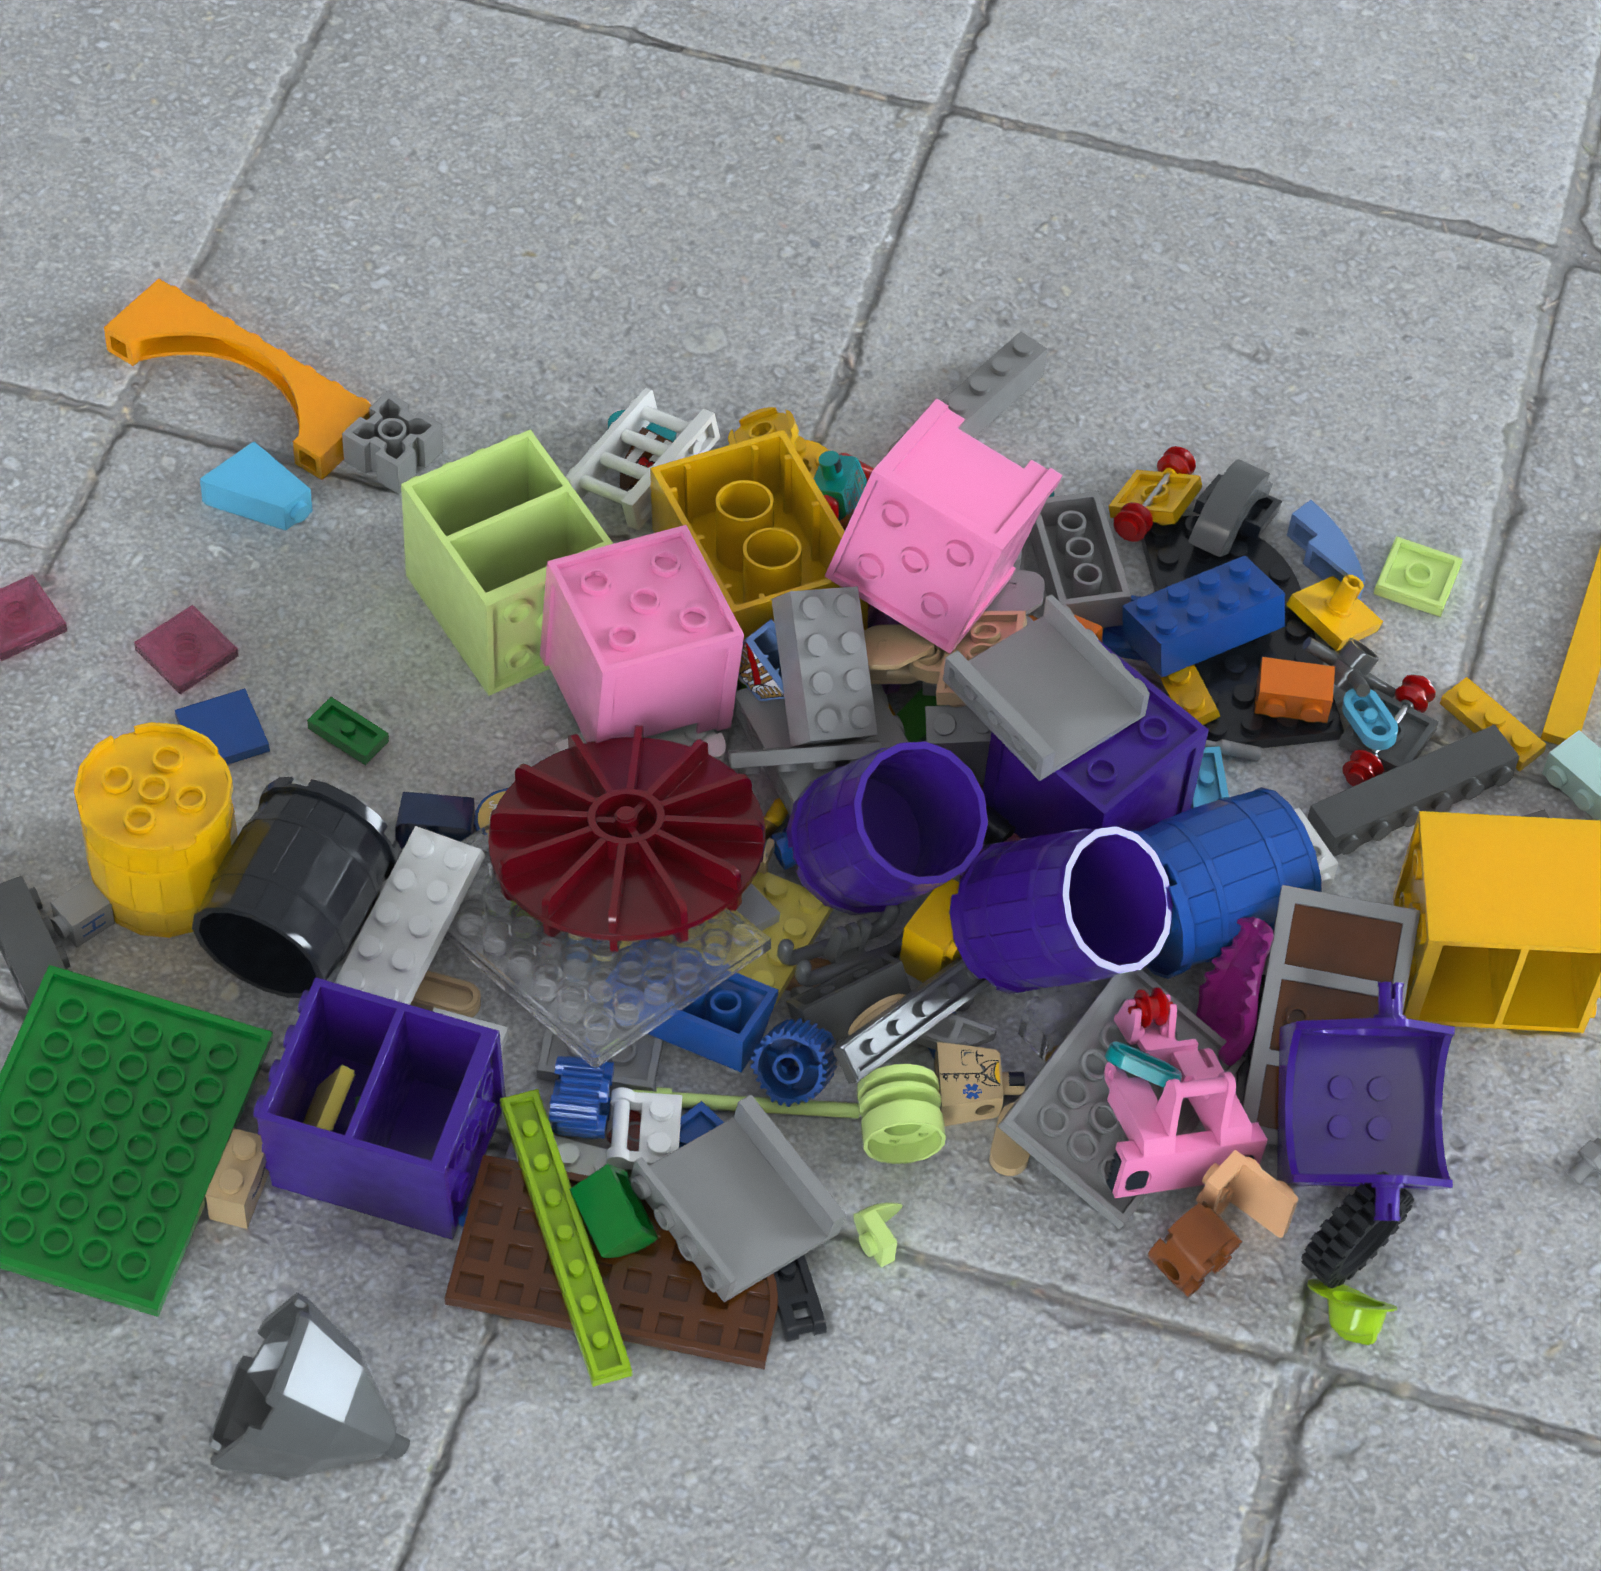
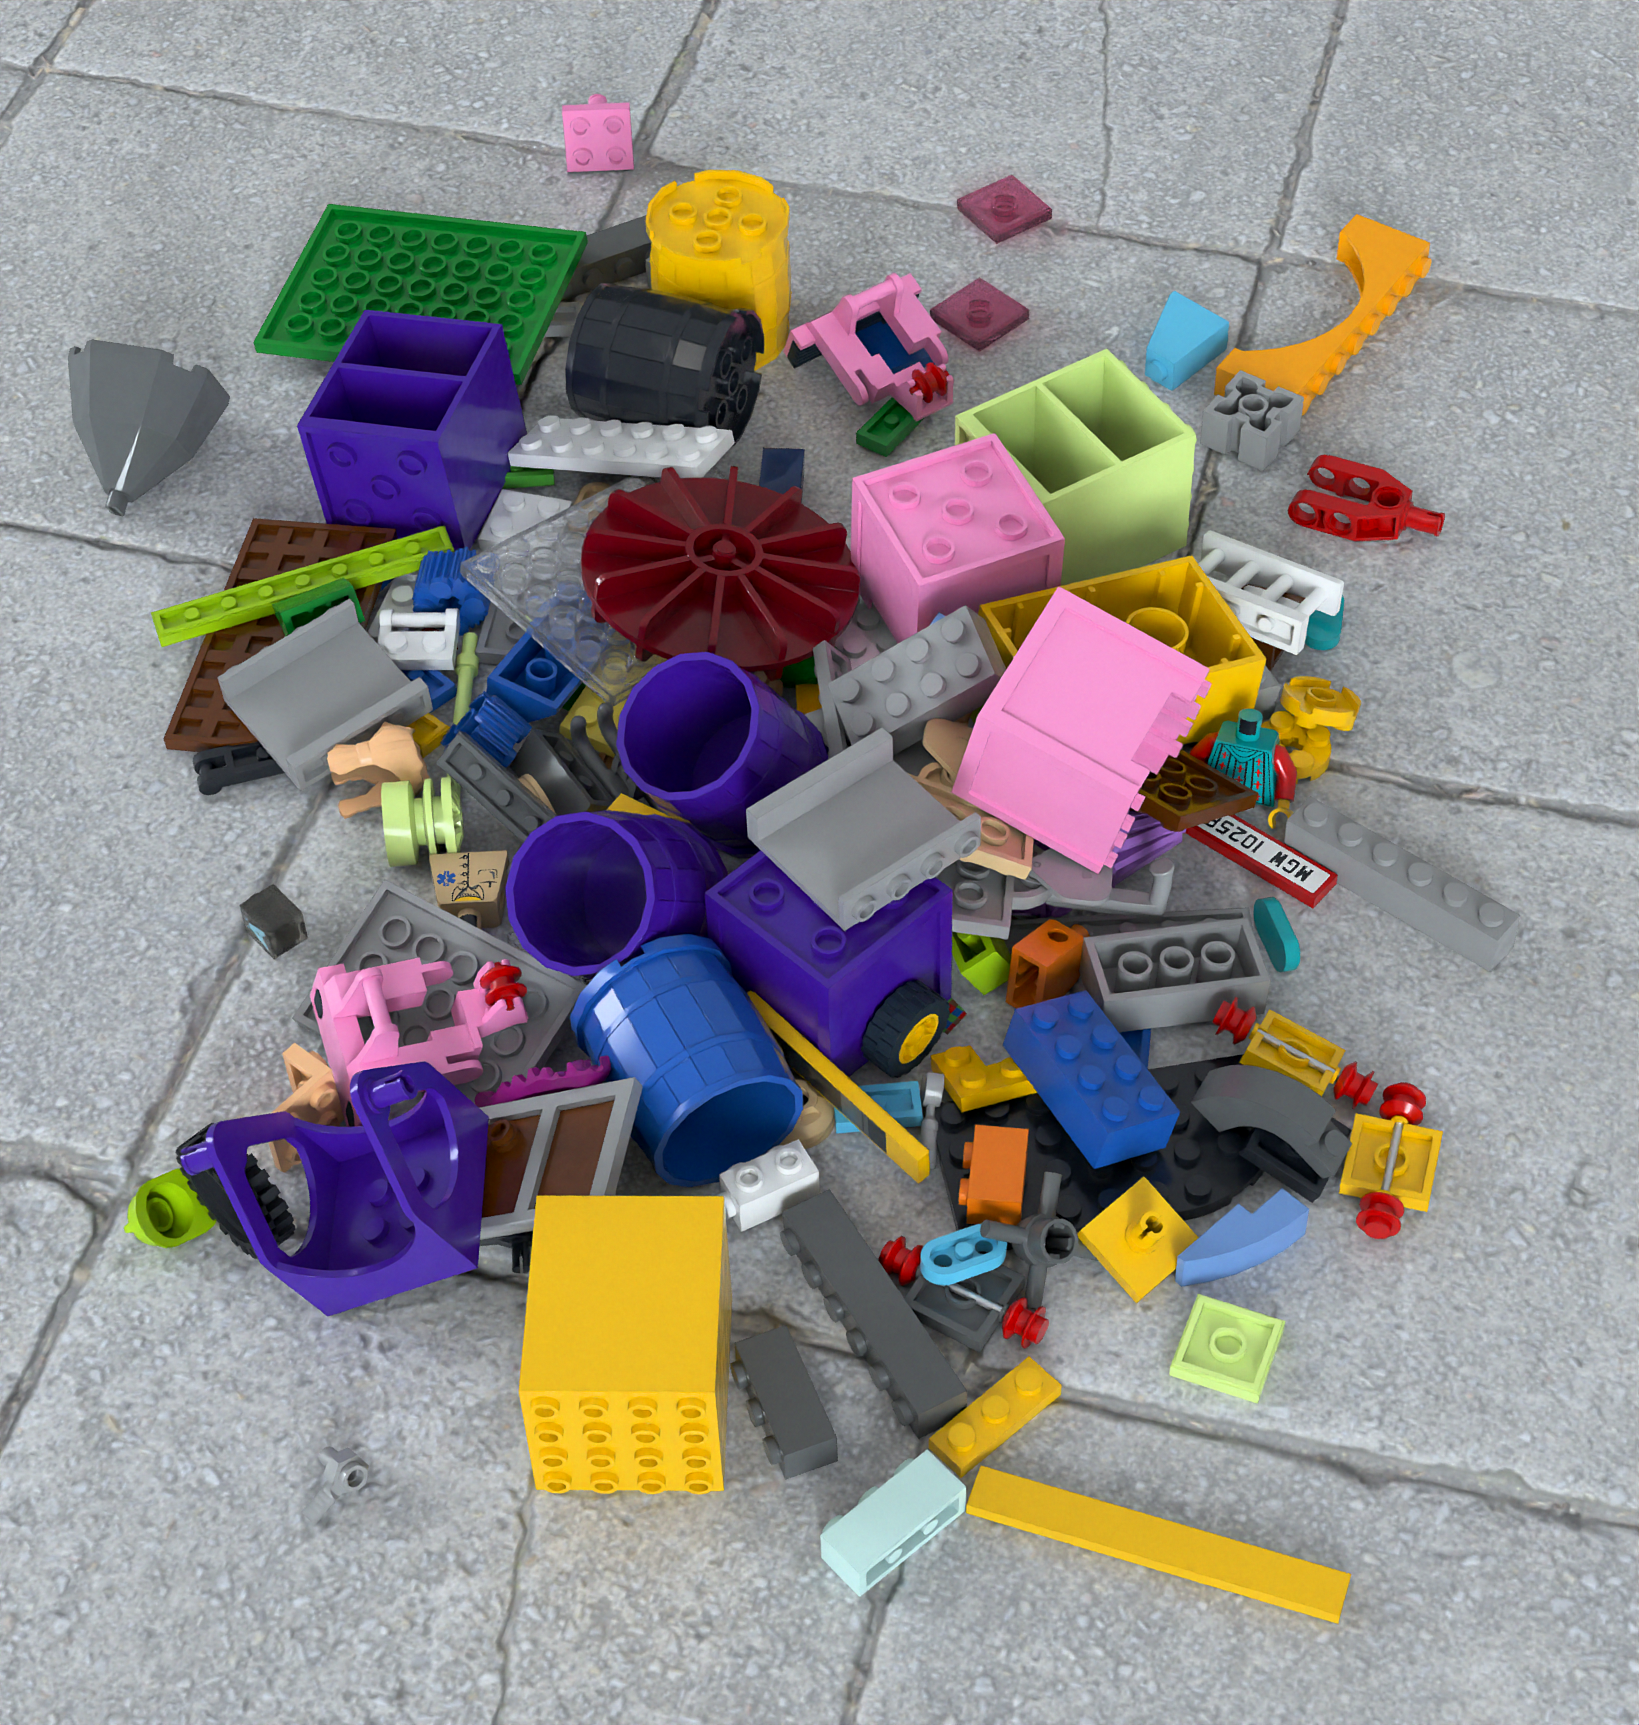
camera: 95 degrees right, 5 degrees down
(249, 745) = (868, 376): none -> bright pink container
(514, 364) = (1382, 519): none -> red piece
(822, 1142) = (384, 758): none -> light nougat piece
(874, 1234) = (299, 819): yellowish green plate -> none
(1007, 1247) = (273, 921): none -> clear smoke brick
(1141, 1064) = (435, 986): teal tile -> none
(1194, 1248) = (246, 1064): dark orange brick -> none
(1232, 776) = (846, 1095): none -> yellow tile
(1248, 443) = (1391, 1161): none -> yellow plate

